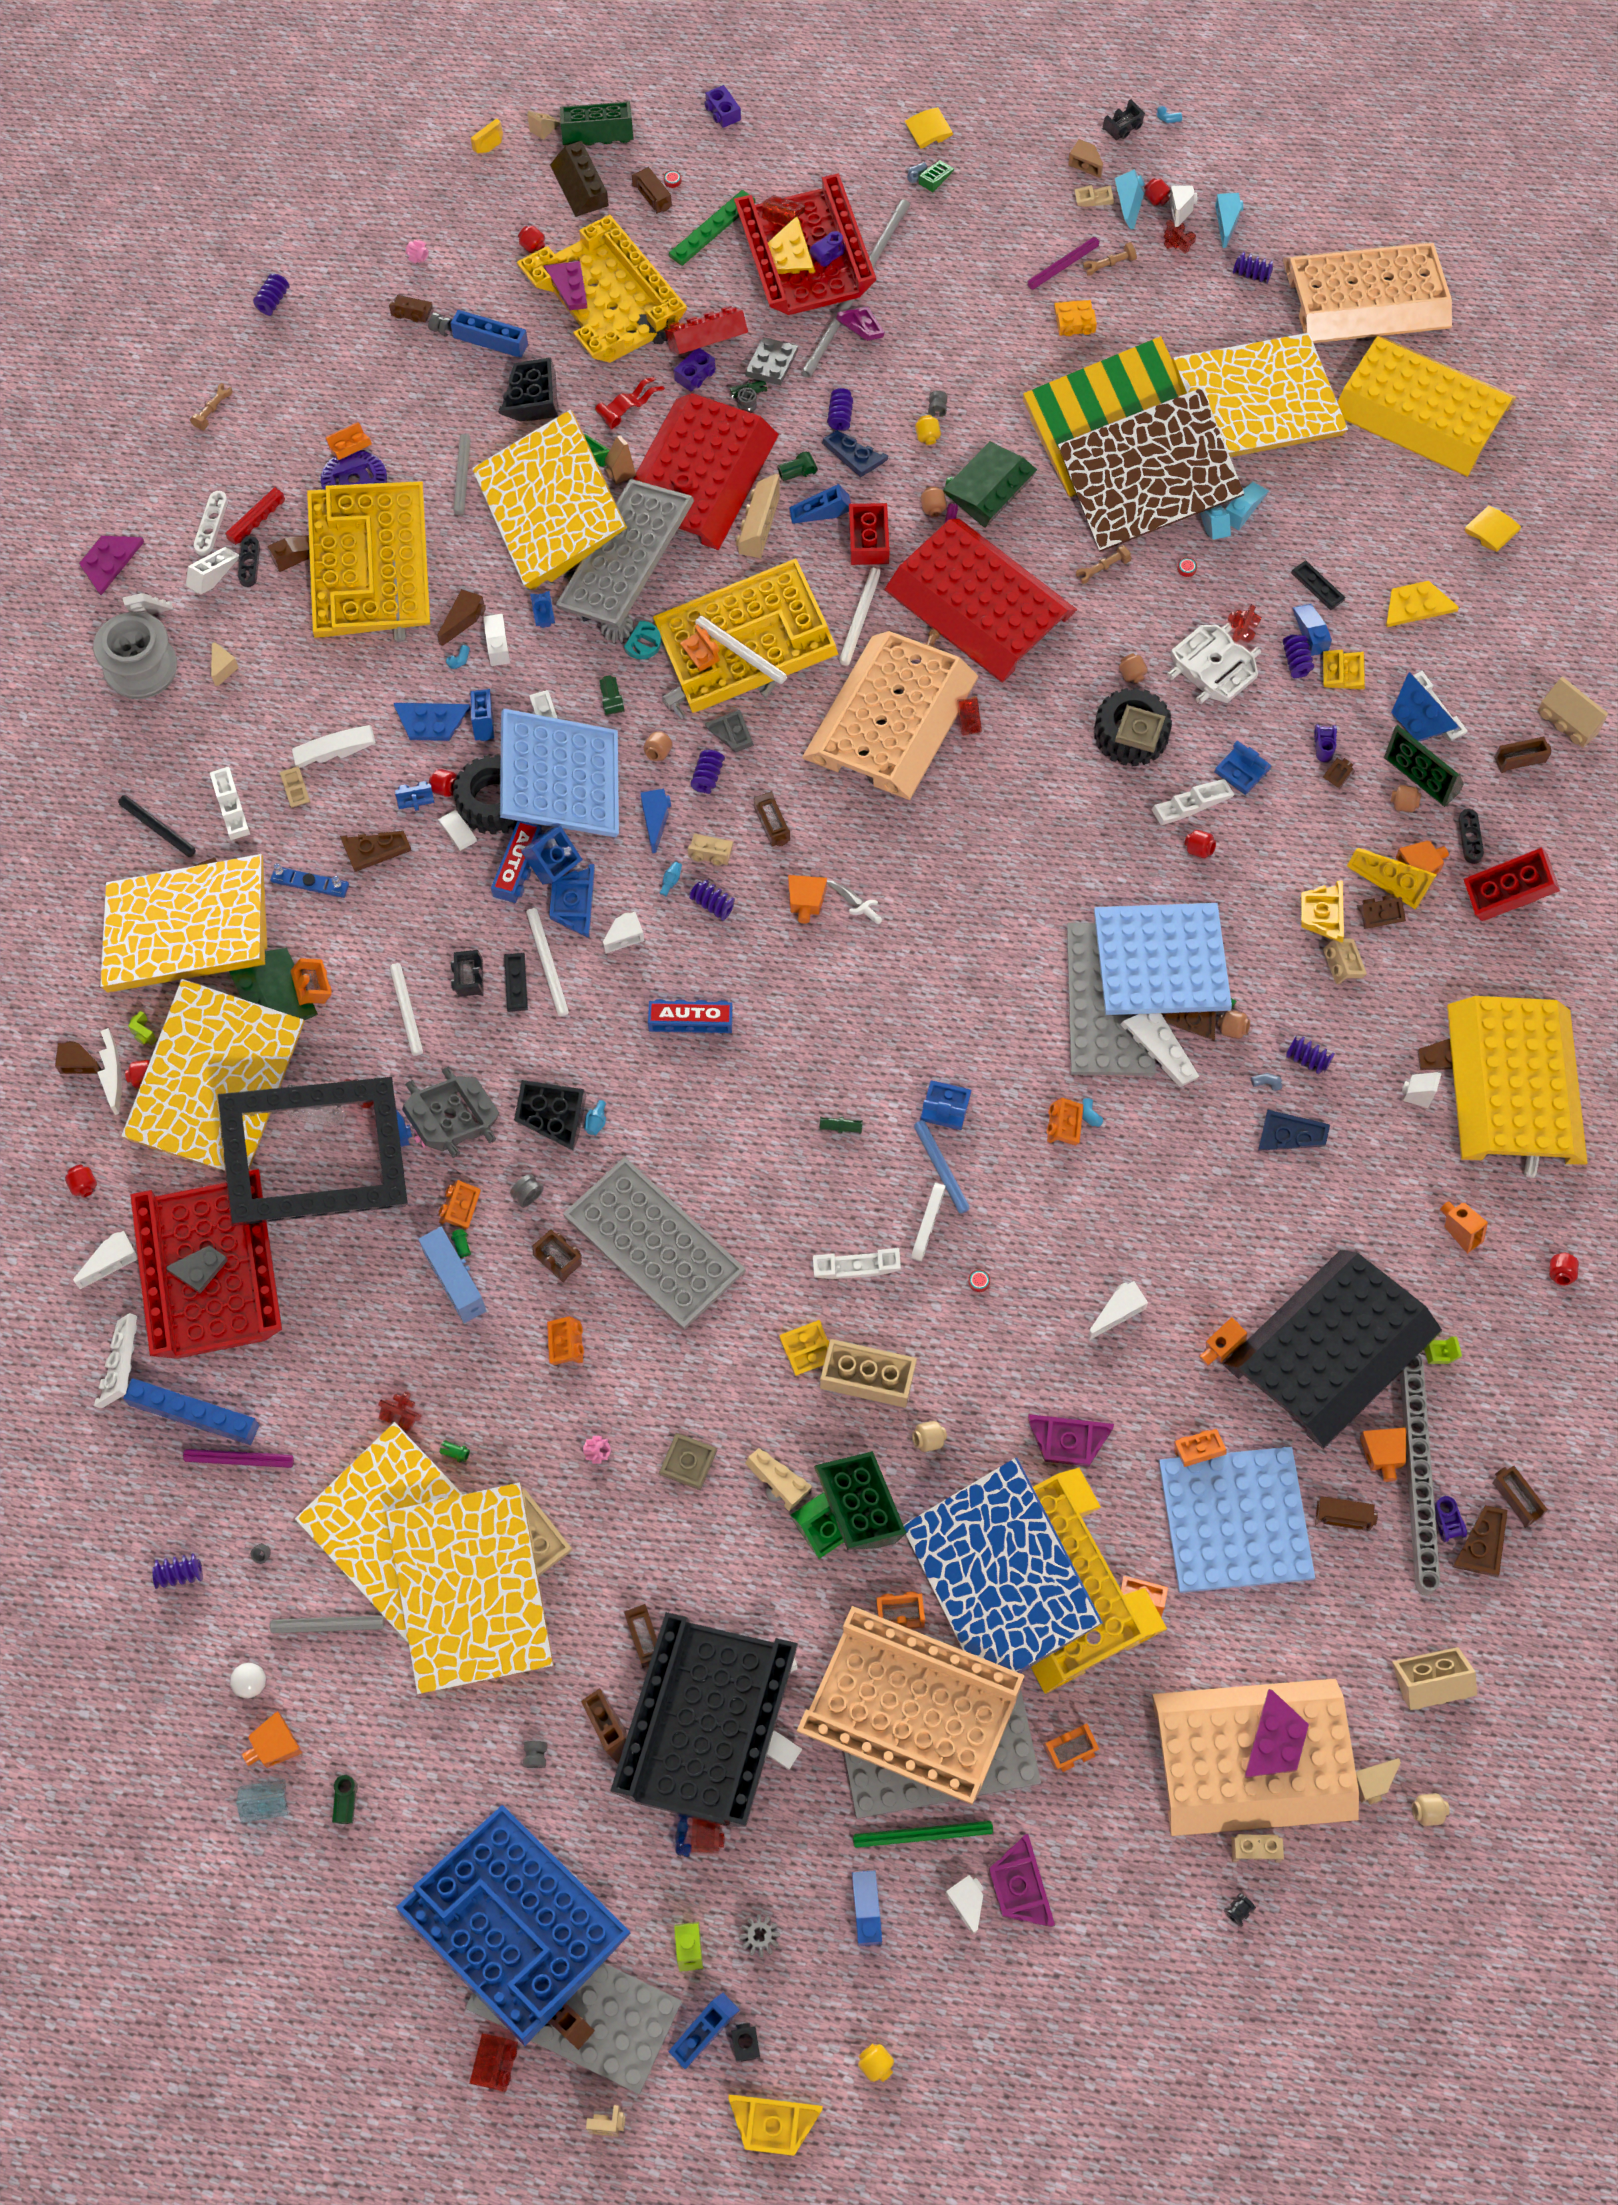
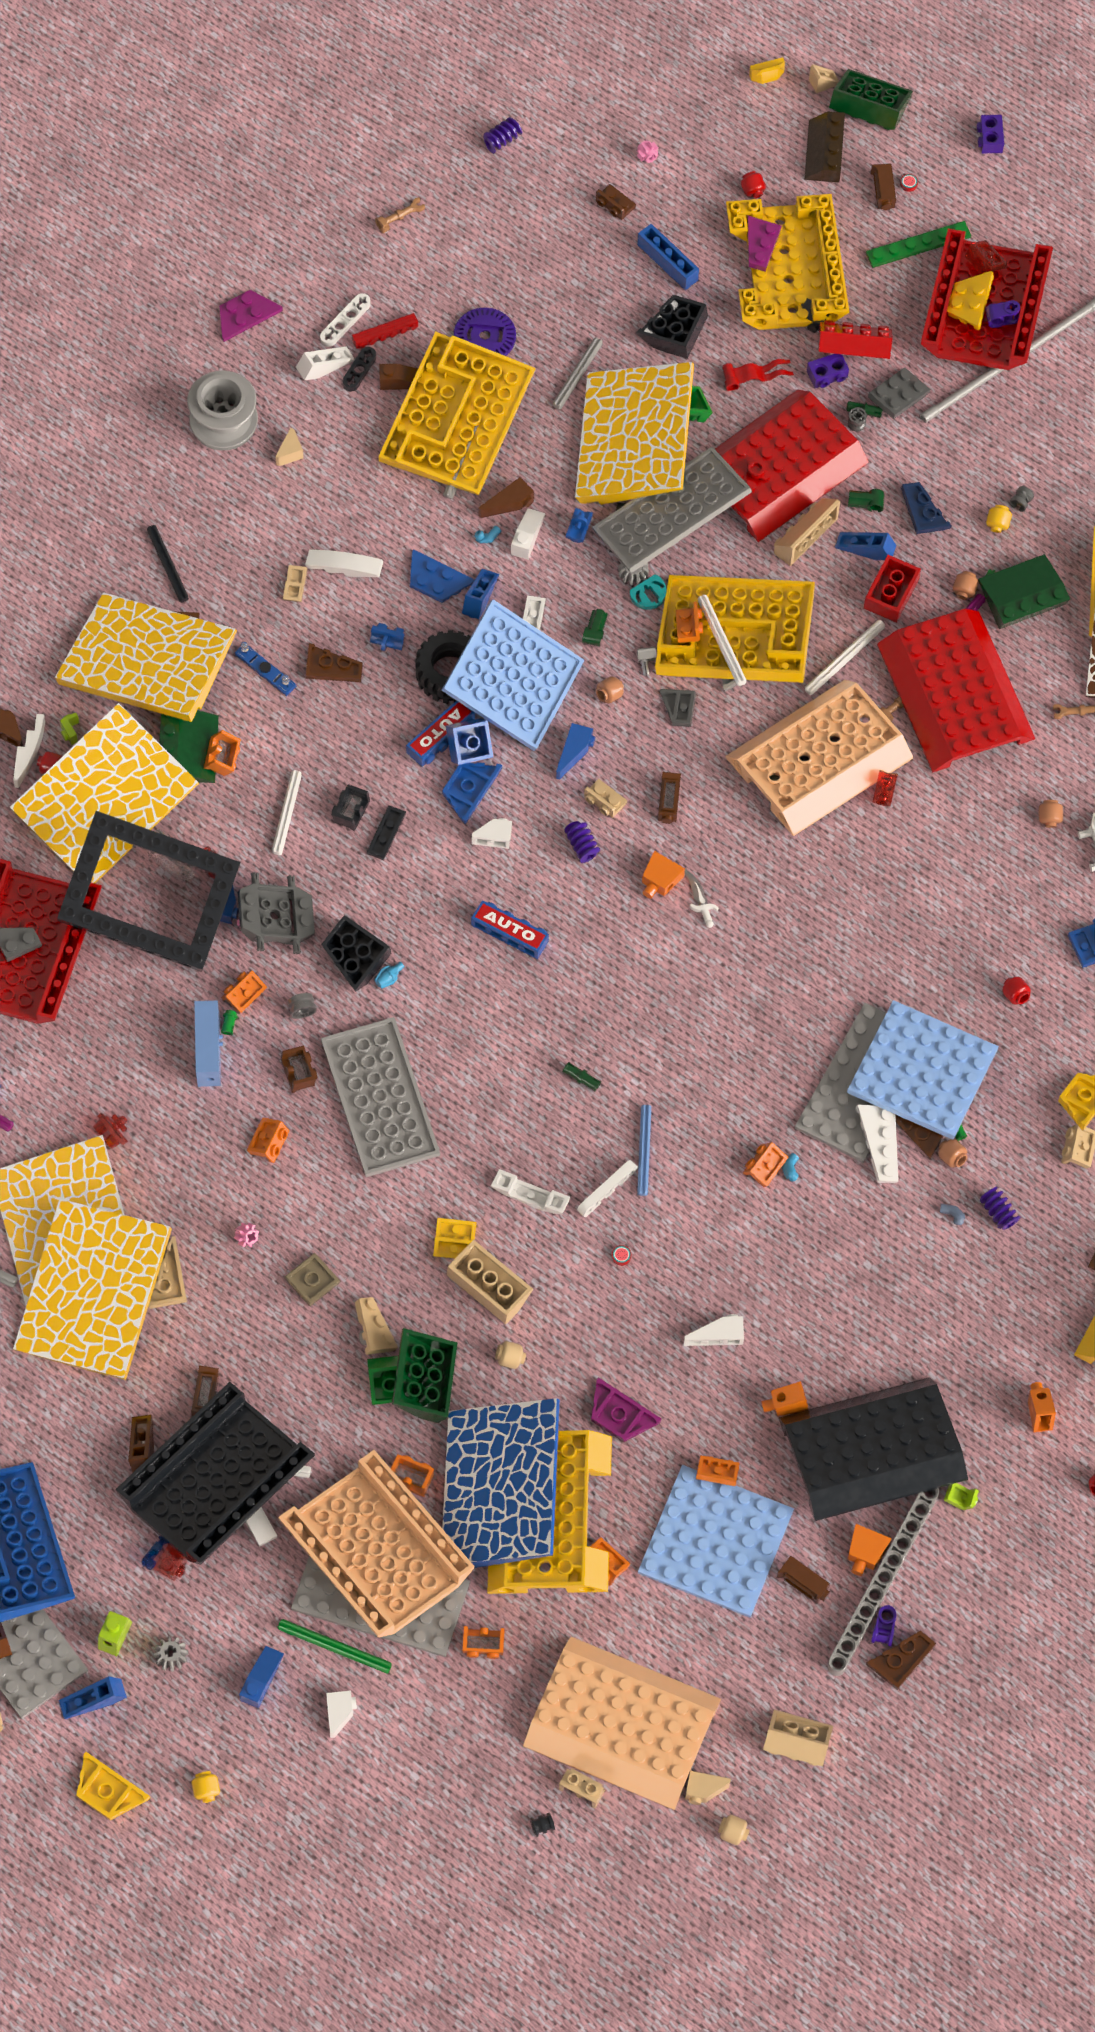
camera: 25 degrees right, 0 degrees up
(146, 604) = (252, 371): white wing -> none
(229, 803) = (235, 572): white slope -> none
(348, 441) = (497, 300): orange bracket -> none
(439, 324) = (631, 227): dark grey wheel -> none
(442, 782) = (415, 636): red head -> none
(455, 1451) = (138, 1182): green pin -> none
(457, 830) = (407, 683): white slope -> none
(534, 1754) = (76, 1437): dark grey wheel -> none
(547, 962) = (420, 828): white axle -> none
(619, 462) = (714, 425): medium nougat slope -> none
(670, 878) = (558, 806): dark azure piece -> none
(707, 770) = (637, 730): dark purple piece -> none
(745, 2054) = (117, 1732): black brick -> none
(840, 409) = (932, 465): dark purple piece -> none
(862, 322) = (998, 393): magenta wing -> none
(945, 1105) = (676, 1102): blue plate -> none
(1020, 1885) = (386, 1720): magenta wing -> none
(1113, 709) = (1013, 884): black tyre -> none
(1140, 729) = (1016, 868): dark tan plate -> none
(1189, 803) = (1033, 952): white slope -> none
(1277, 1739) = (641, 1714): magenta wing -> none
(1291, 1132) = (947, 1264): dark blue wing -> none
(1421, 1088) = (1075, 1282): white slope -> none
(1519, 1495) = (952, 1637): reddish brown window -> none

